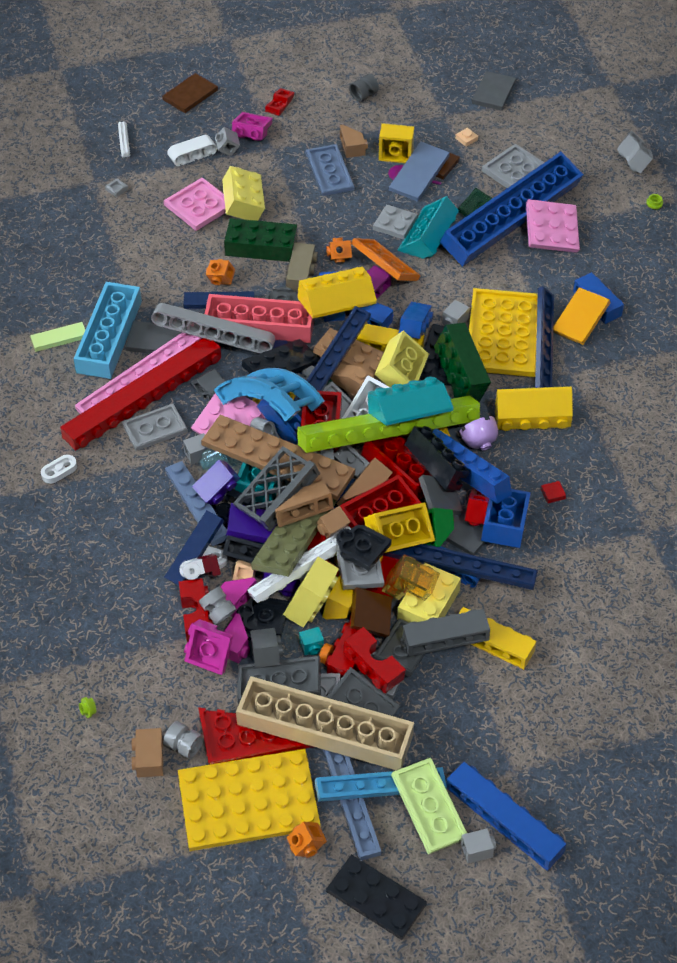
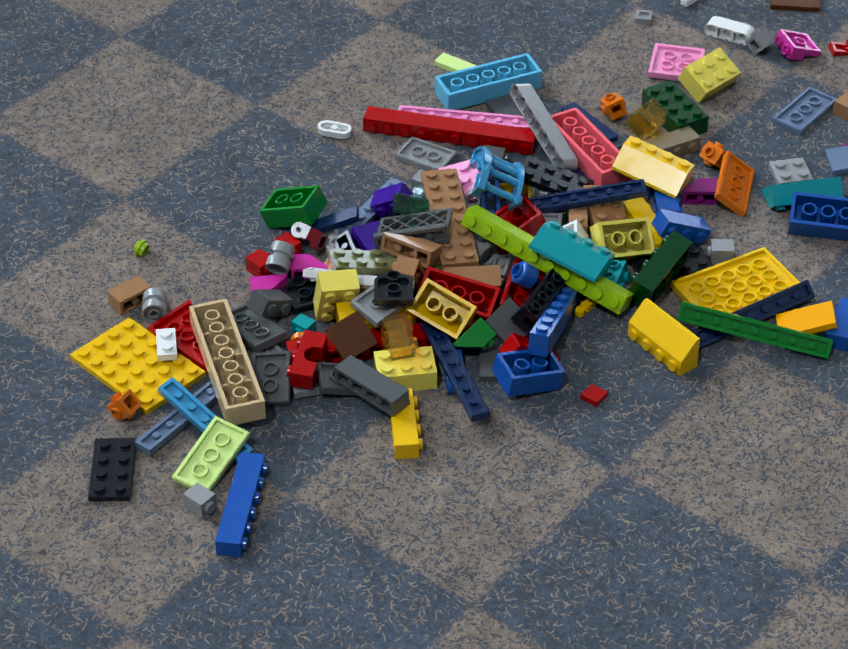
camera: 55 degrees right, 10 degrees down
(152, 557) = (293, 205): none -> green brick
(208, 647) = (241, 273): dark pink plate -> none
(246, 472) = (409, 204): none -> clear green plate
(250, 759) = (166, 344): none -> white plate
(266, 261) = (647, 119): none -> clear yellow brick
(404, 448) = (525, 275): none -> blue head
(480, 433) = (604, 321): lavender cylinder -> none
(571, 351) = (755, 329): none -> green plate

